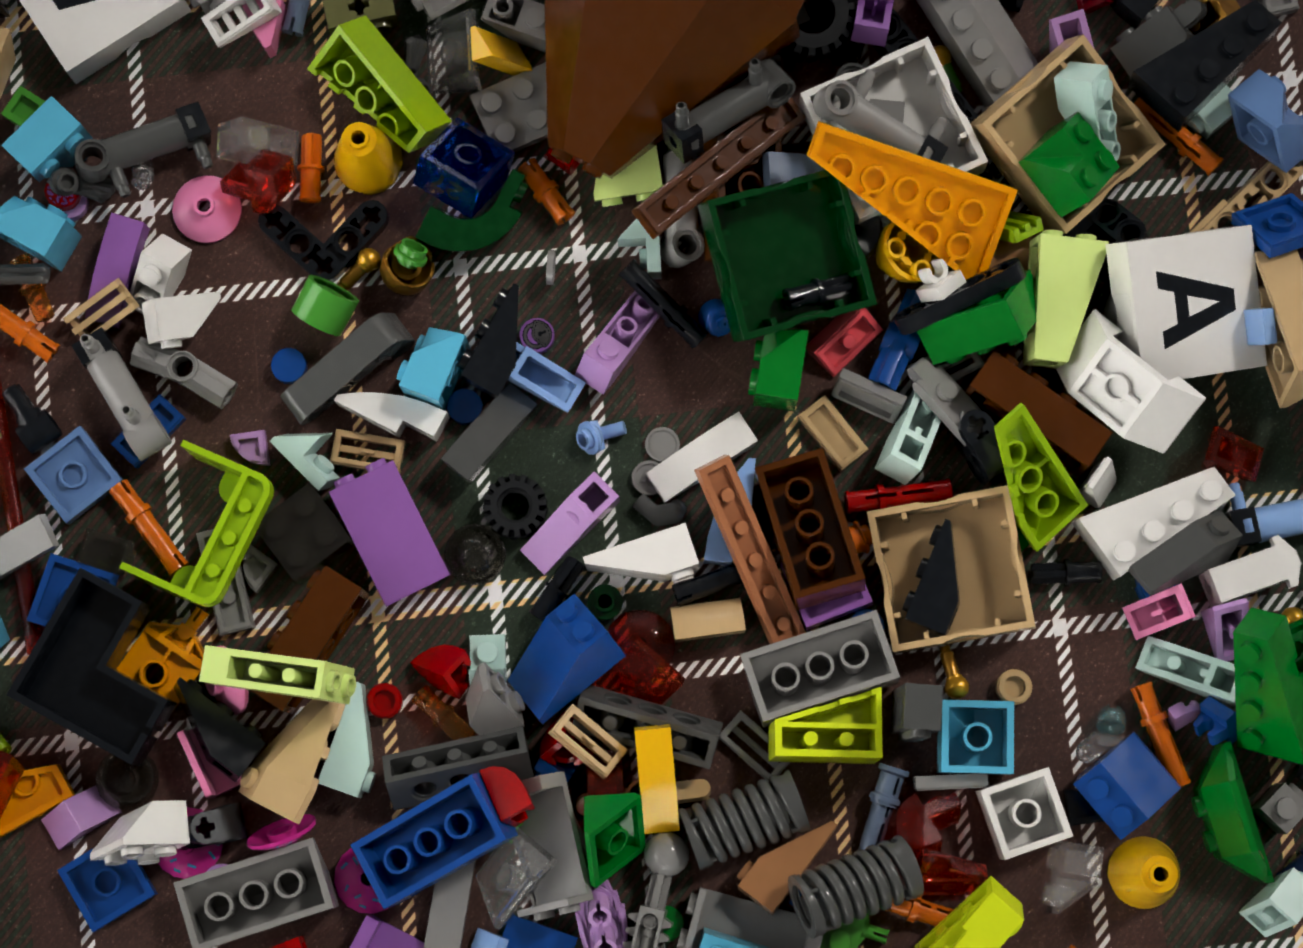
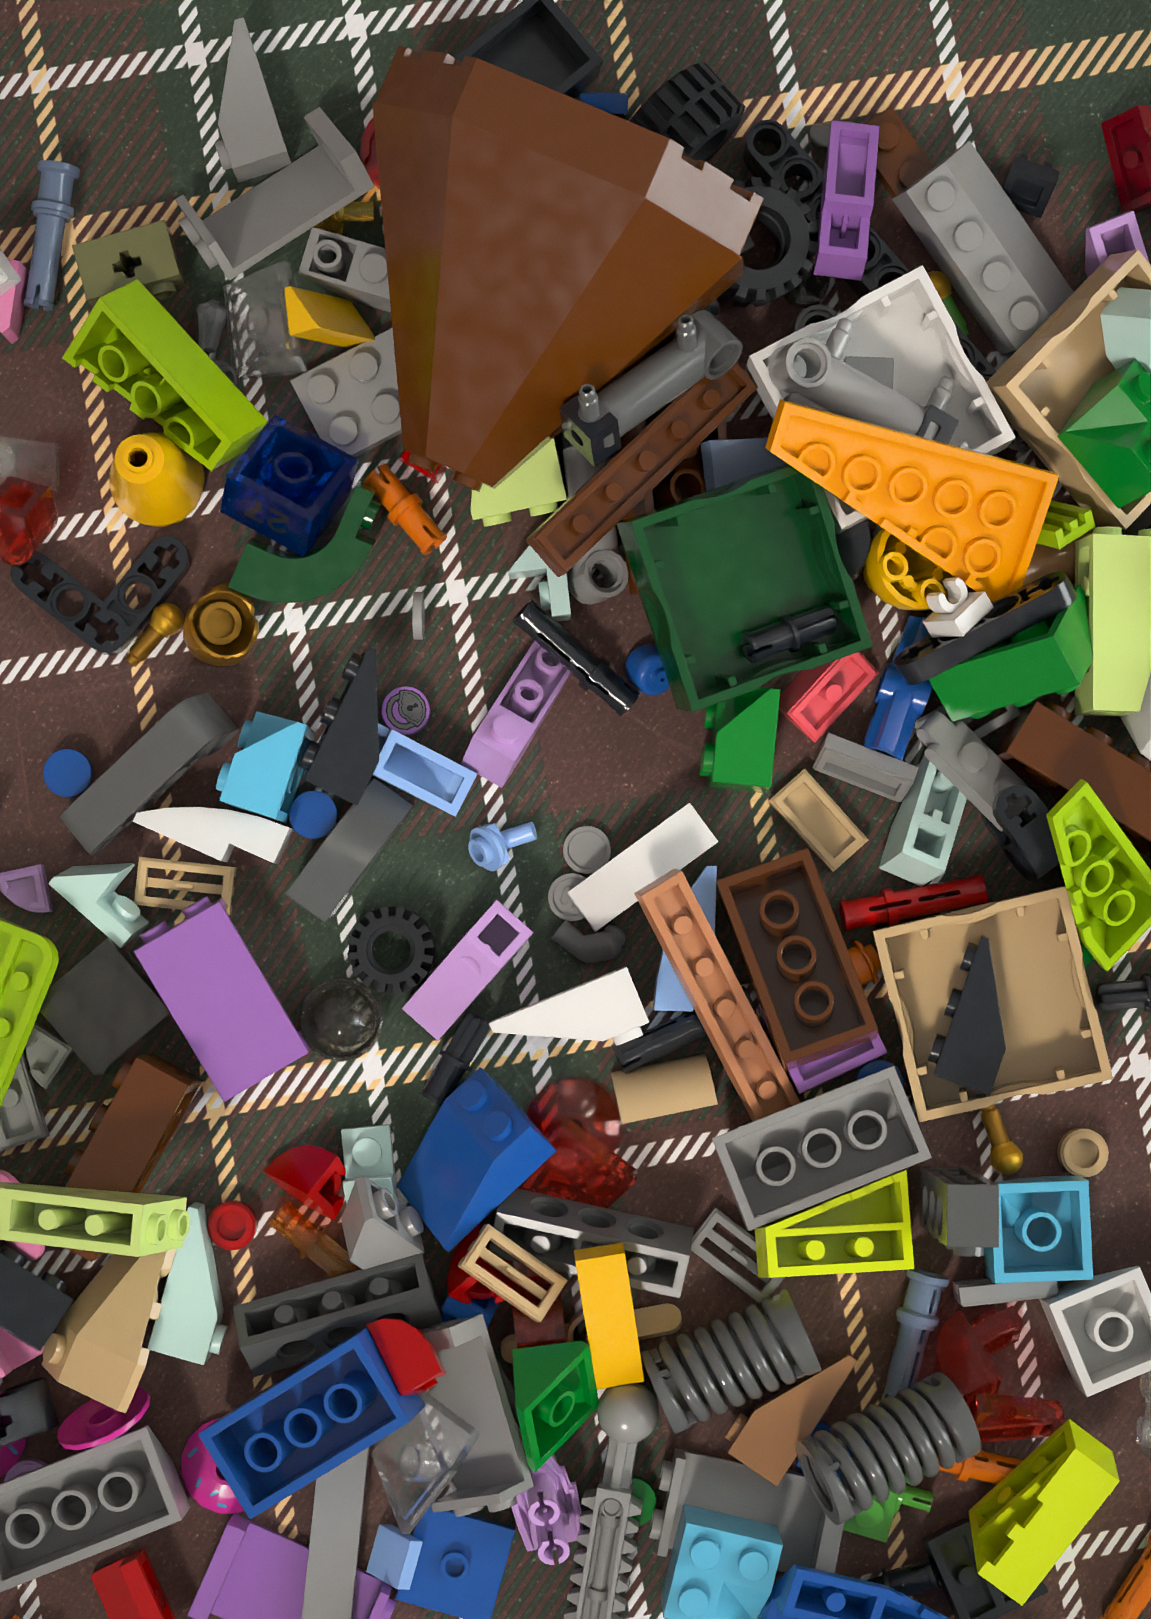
camera: 10 degrees left, 5 degrees up
(310, 168) = (78, 496): orange axle -> none
(325, 305) = (110, 689): bright green piece -> none
(411, 253) = (224, 610): bright green plate -> none
(605, 613) = (522, 1056): dark green plate -> none

